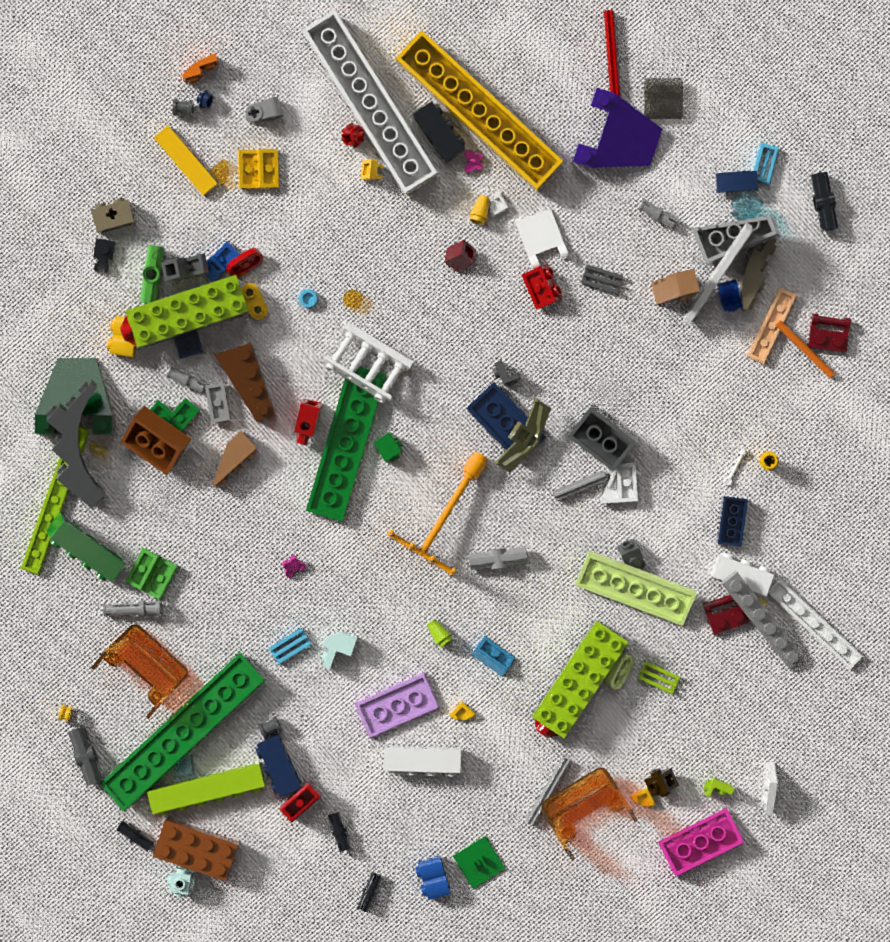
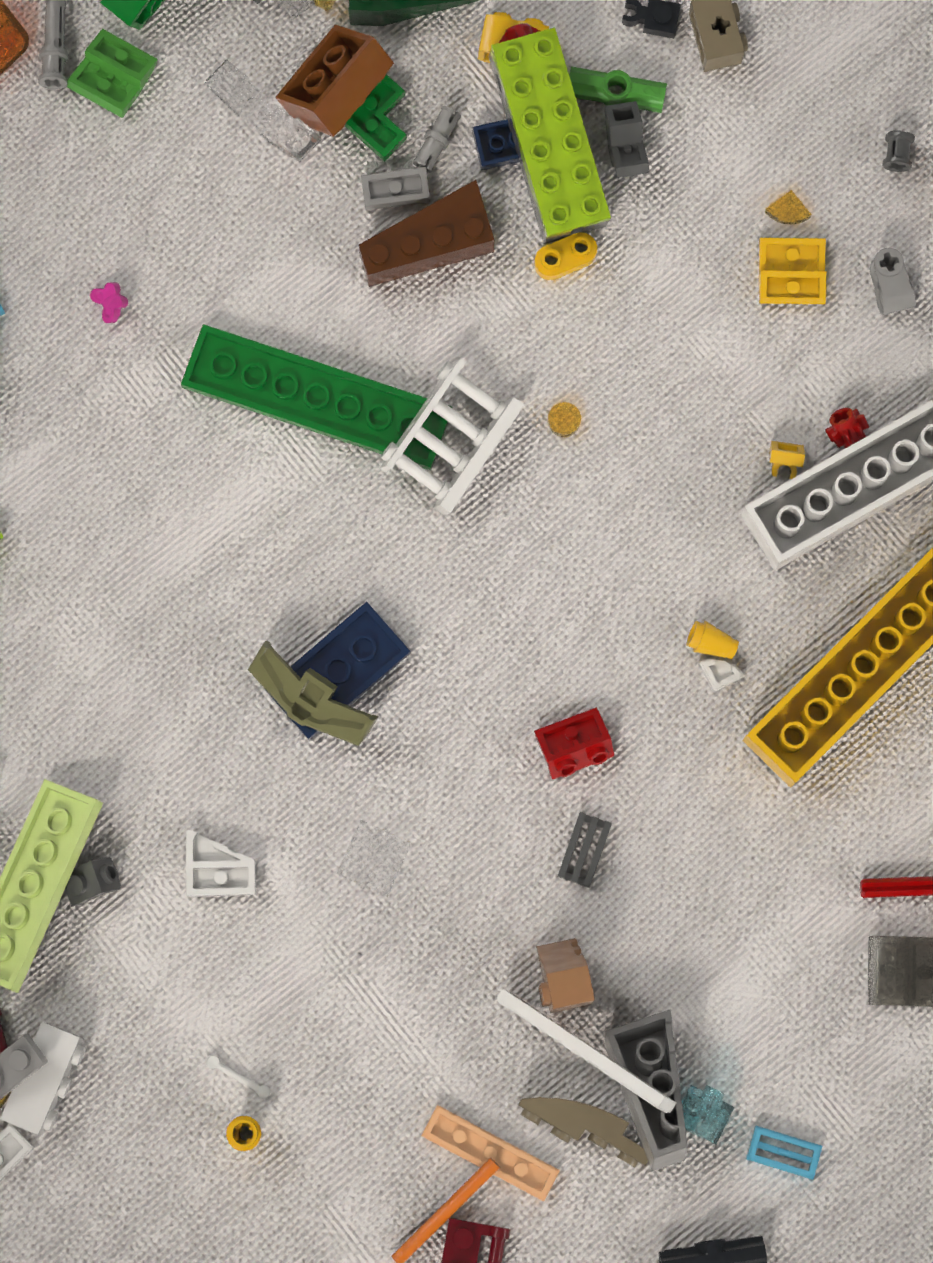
camera: 95 degrees right, 10 degrees down
(185, 160) = (808, 153): yellow tile -> none
(205, 99) = (912, 188): dark blue plate -> none
(218, 262) = (636, 205): blue slope -> none
(235, 453) = (306, 211): medium nougat slope -> none
(245, 262) = (632, 242): red plate -> none
(308, 298) = (567, 346): medium azure tile -> none
(309, 413) = (359, 332): red torso -> none
(389, 447) = (304, 467): green brick -> none
(439, 131) = (850, 575): black brick -> none
(460, 256) = (633, 603): dark red panel -> none
(472, 470) = (257, 608): light orange piece -> none
(474, 161) = (797, 634): dark pink piece -> none
(498, 558) = (100, 646): light grey piece -> none
(500, 372) = (425, 665): dark grey bracket -> none
(539, 235) = (666, 744): white flag -> none
(580, 485) = (220, 796): light grey axle -> none
(603, 437) = (303, 837): dark grey slope -> none
(626, 136) = (835, 899): dark purple wedge -> none
(657, 213) = (698, 953): light grey pin -> none
(729, 295) = (546, 1076): clear blue bracket -> none
(732, 521) = (140, 1064): dark blue piece -> none
(736, 181) = (752, 1097): dark blue slope -> none

